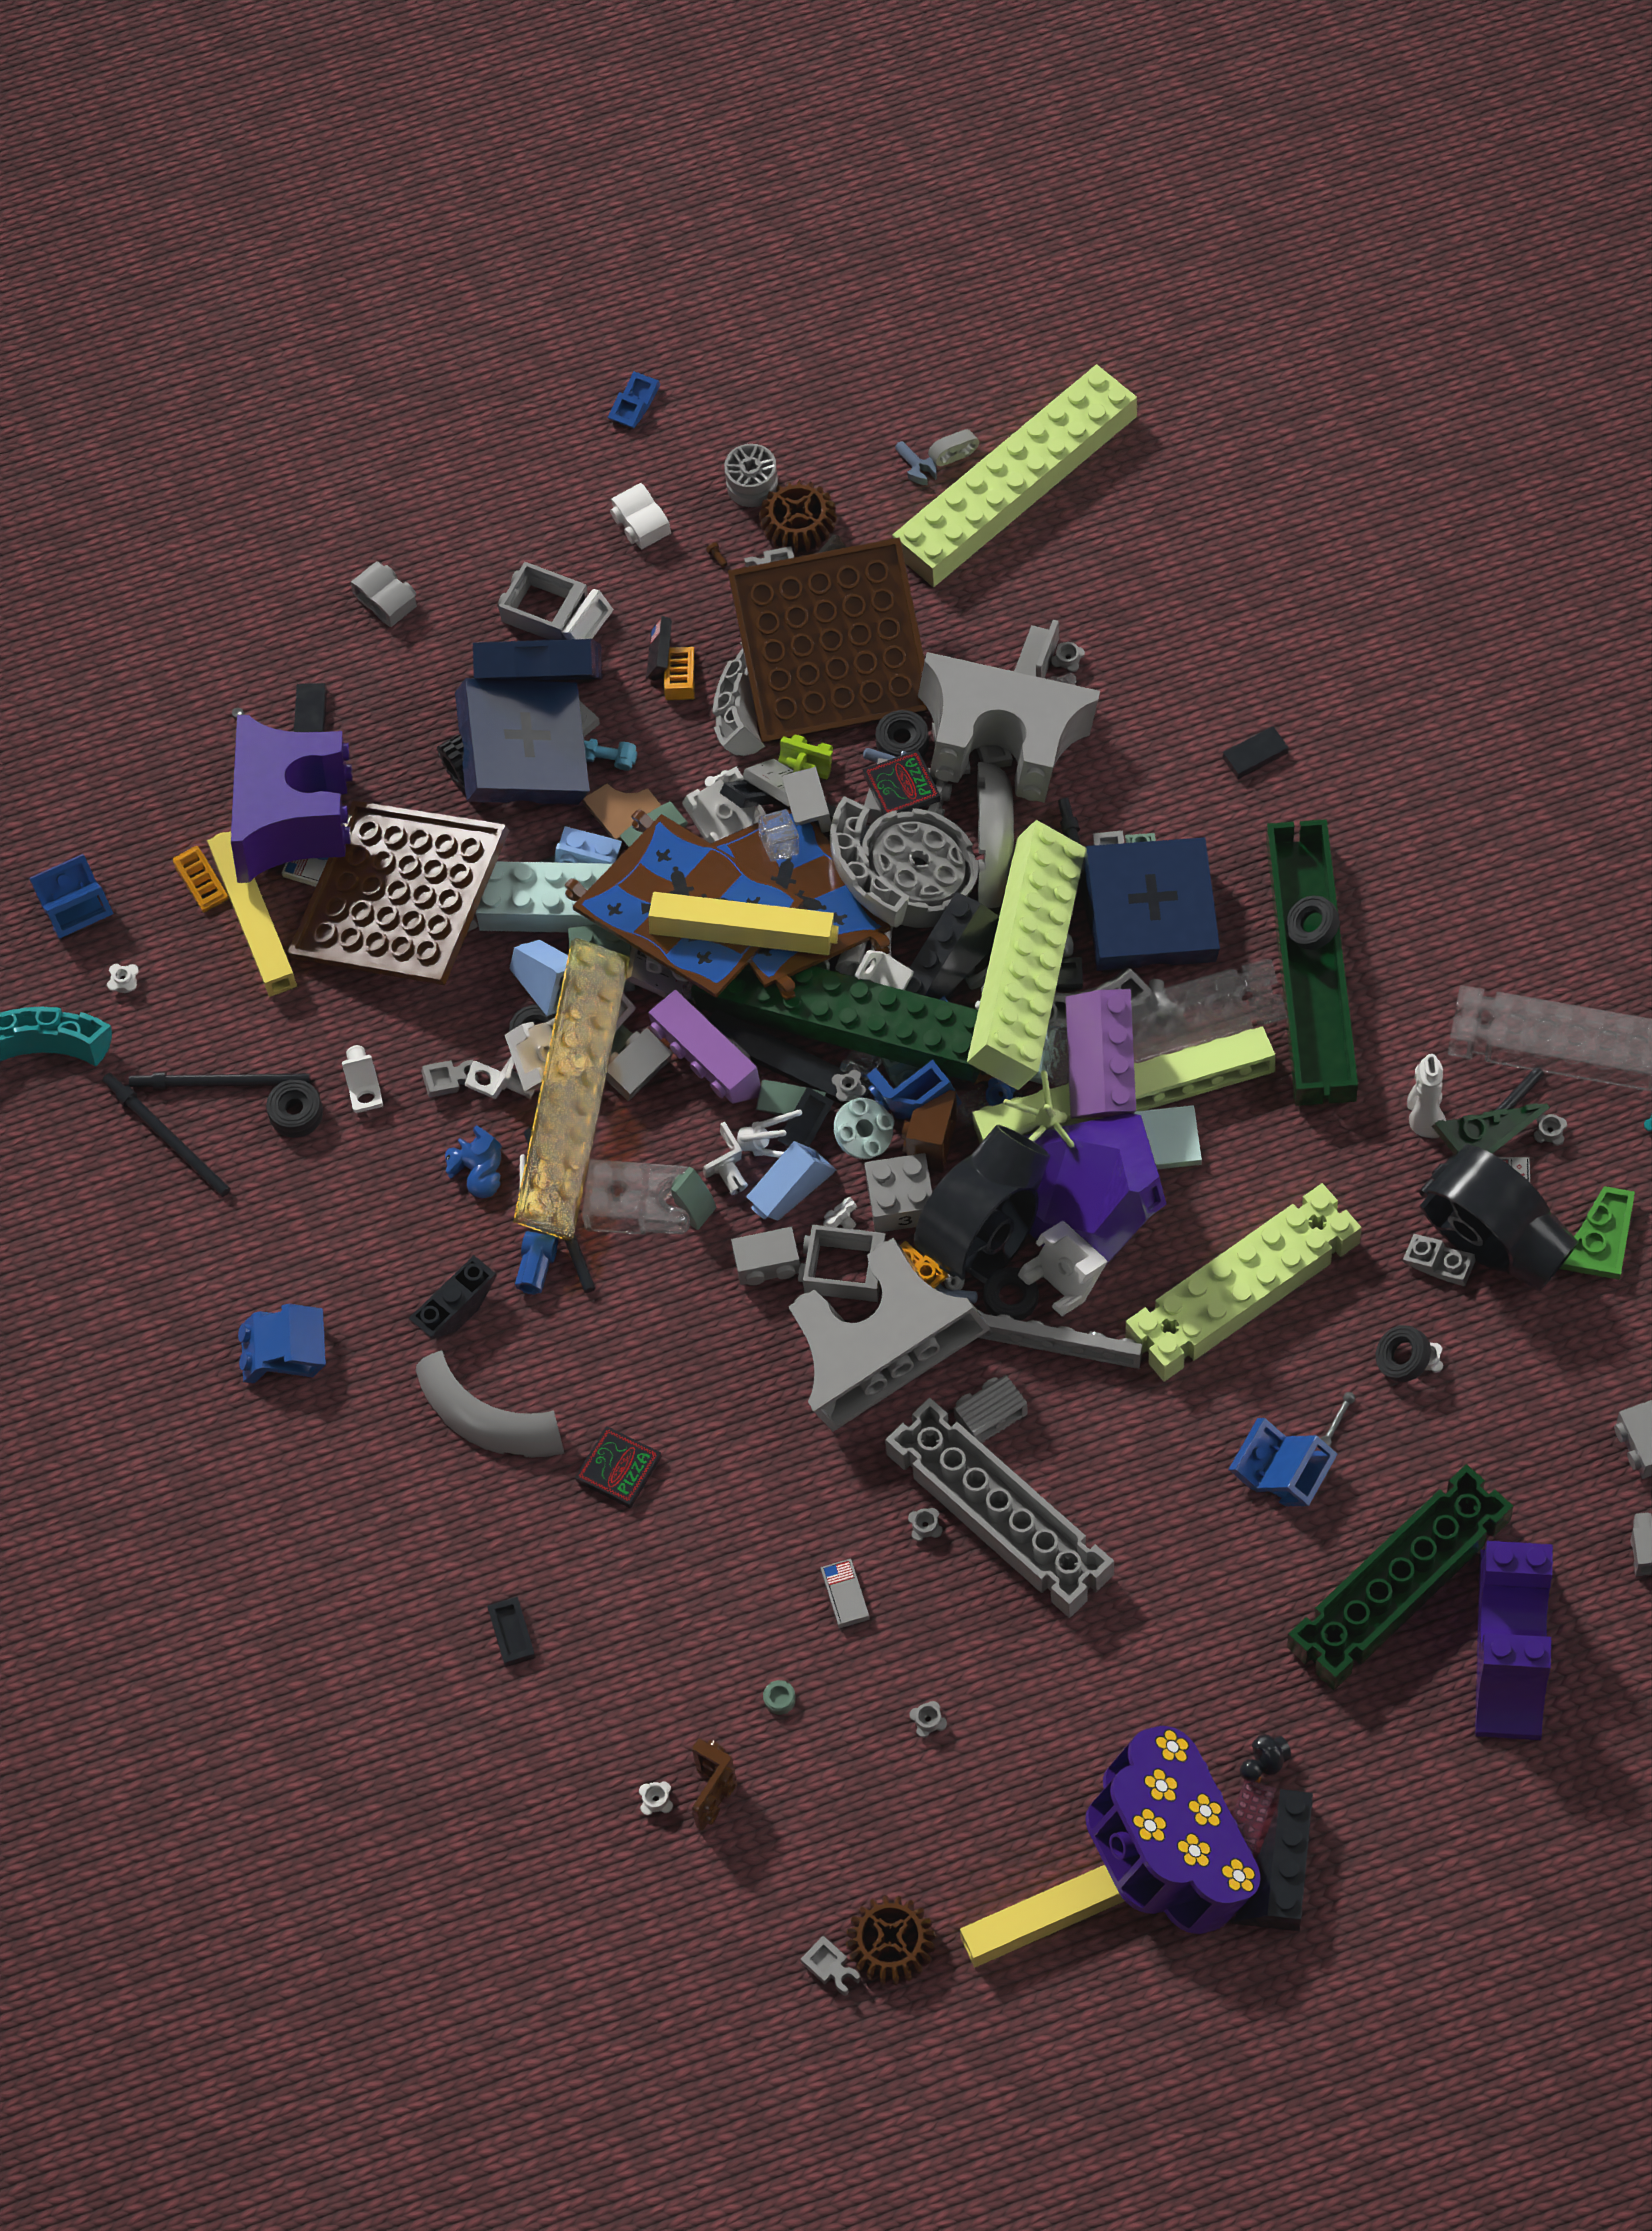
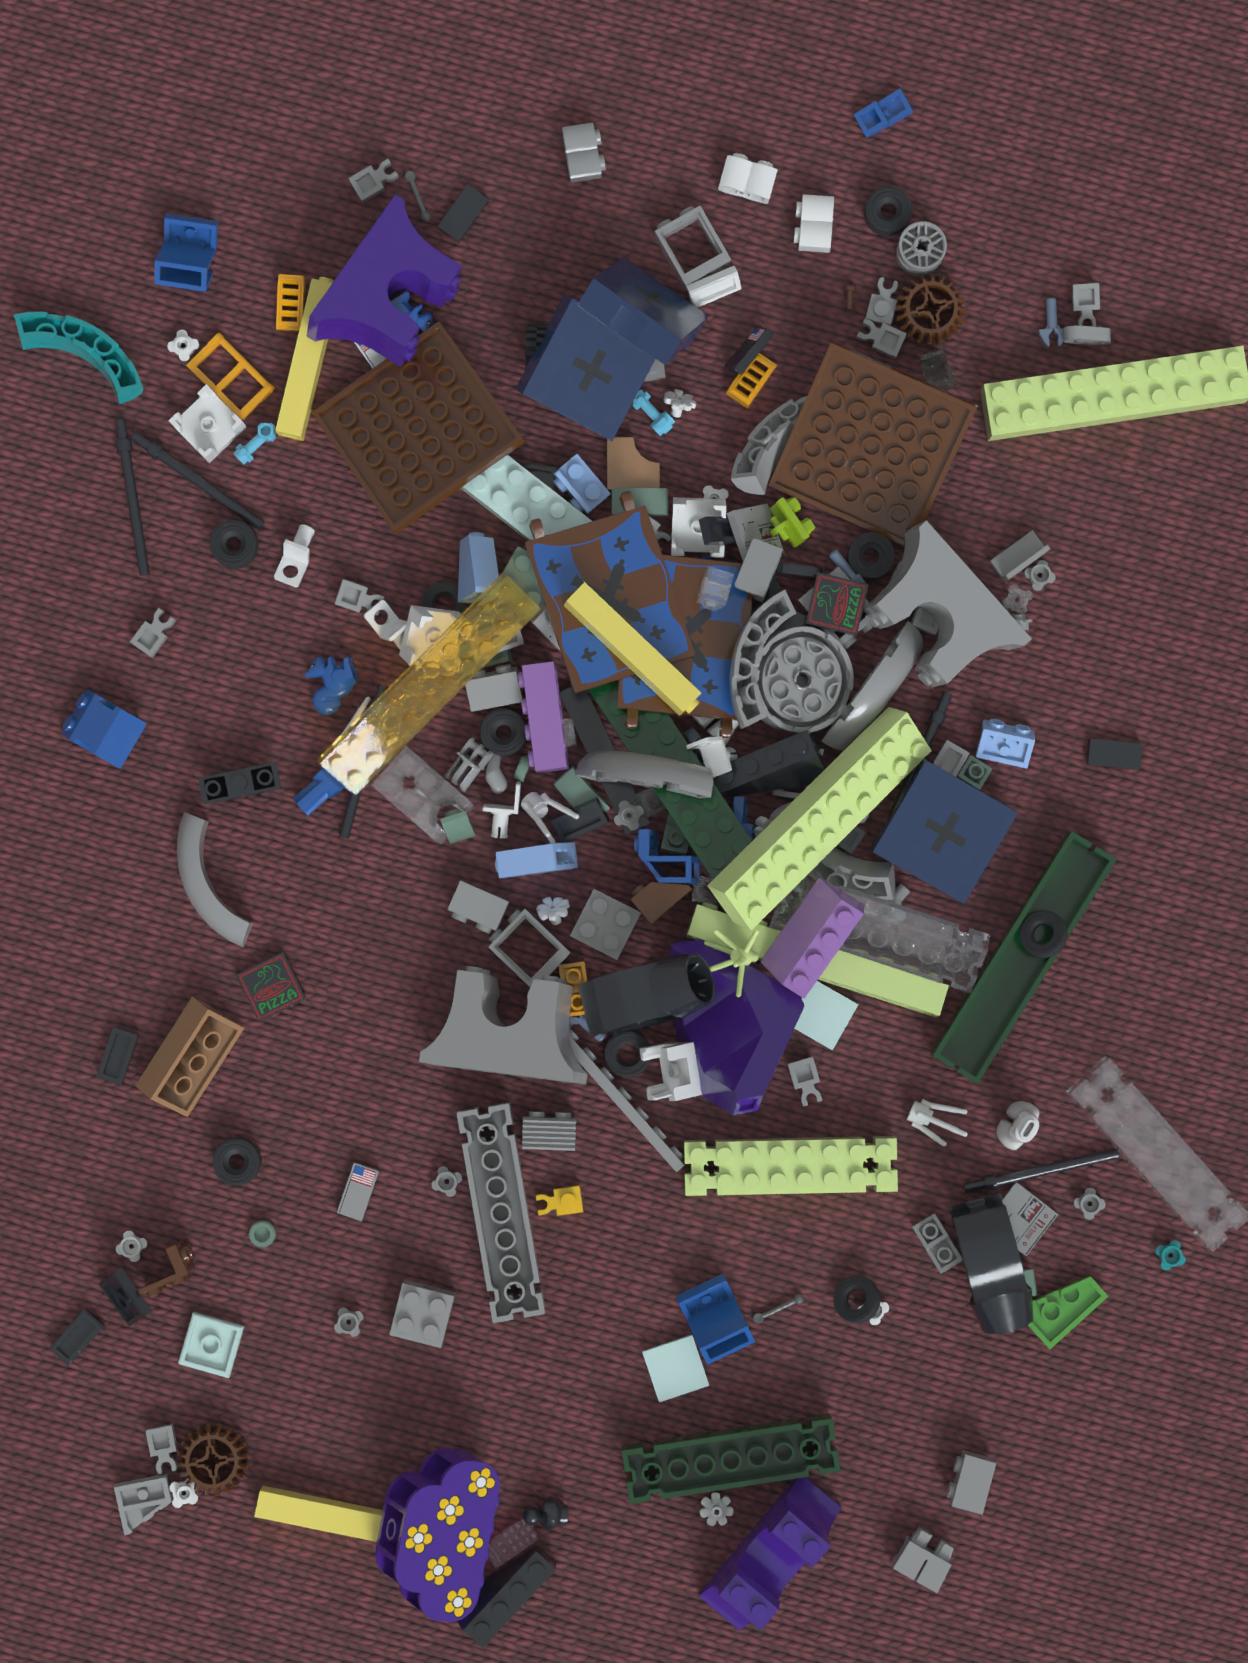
camera: 25 degrees right, 25 degrees up
(182, 995) = (243, 364): none -> light orange window
(195, 1025) = (208, 424): none -> white panel
(204, 738) = (369, 182): none -> light grey plate
(257, 1000) = (266, 432): none -> medium azure bar
(272, 1236) = (150, 636): none -> light grey plate
(551, 521) = (748, 178): none -> white brick
(584, 1579) = (189, 1057): none -> medium nougat slope
(627, 730) = (679, 402): none -> white plant
(662, 1147) = (466, 767): none -> light grey arm
(663, 1924) = (77, 1336): none -> black tile
(675, 1082) = (492, 742): none -> black tyre
(685, 1839) = (125, 1297): none -> black tile
(695, 1139) = (495, 776): none -> light grey arm
(698, 453) = (888, 196): none -> black tyre
(703, 1662) = (222, 1165): none -> black tyre
(716, 1113) = (522, 769): none -> sand green tile
(750, 542) = (881, 306): none -> light grey plate
(806, 1837) = (211, 1344): none -> light aqua tile
(831, 1019) = (647, 771): none -> light grey brick
(847, 2033) = (141, 1499): none -> light grey wing
(850, 787) = (797, 571): none -> black tile
(863, 1128) = (613, 859): light aqua plate -> none
(881, 2003) = (178, 1499): none -> white plate
(929, 423) = (1085, 299): none -> light grey plate
(995, 1655) = (422, 1313): none -> light grey brick
(1053, 1465) = (565, 1201): none -> yellow plate
(1151, 805) = (1005, 743): none -> light blue bracket
(1196, 1199) = (804, 1076): none -> light grey plate
(1282, 1540) = (675, 1368): none -> light aqua tile
(1331, 1156) = (921, 1114): none -> white plant
(1426, 1642) = (713, 1504): none -> white plant
(1489, 1129) = (1037, 1179): dark green wing -> none

